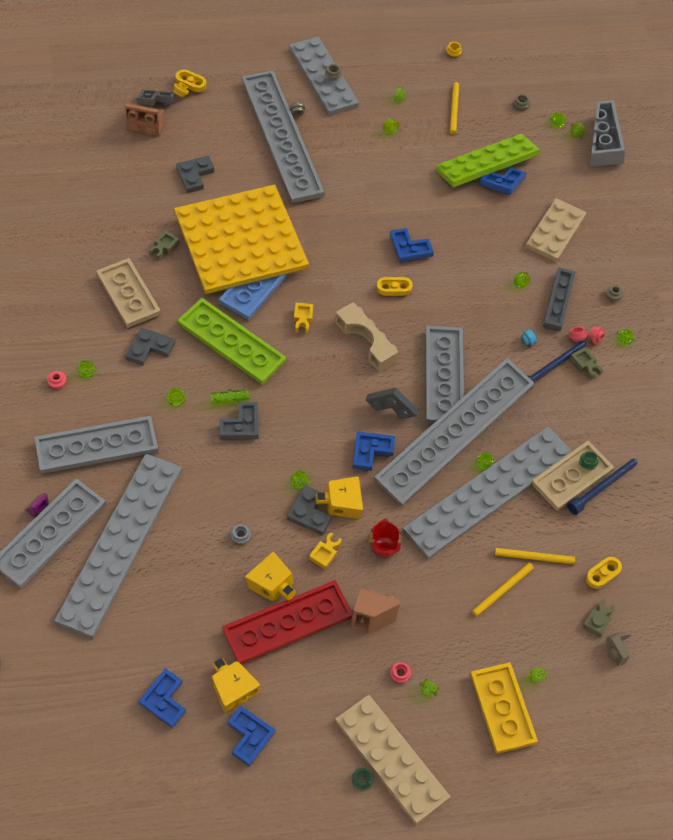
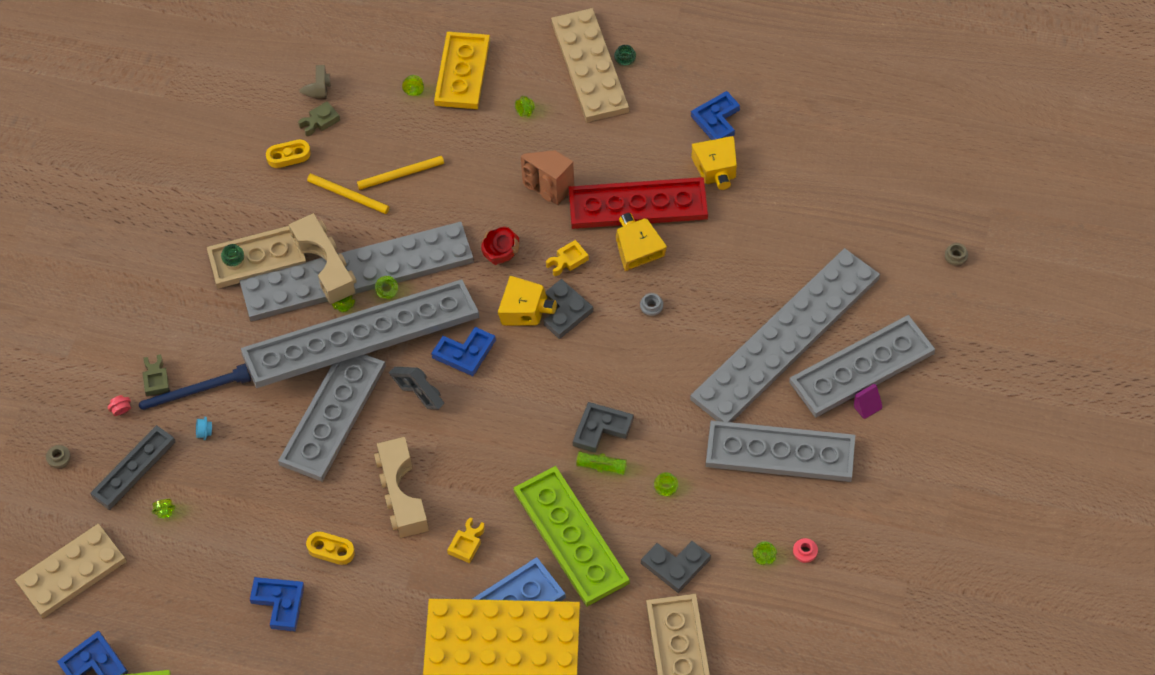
camera: 150 degrees left, 0 degrees up
(158, 699) = (793, 172): blue plate -> none
(300, 474) = (561, 337): clear neon green plate -> none
(400, 666) = (545, 123): coral plate -> none
(458, 481) = (386, 280): none -> clear neon green plate
(536, 491) = (311, 238): none -> tan arch
(577, 505) = (271, 224): dark blue piece -> none
(578, 334) = (135, 417): coral plate -> none
(624, 340) = (88, 400): clear neon green plate -> none

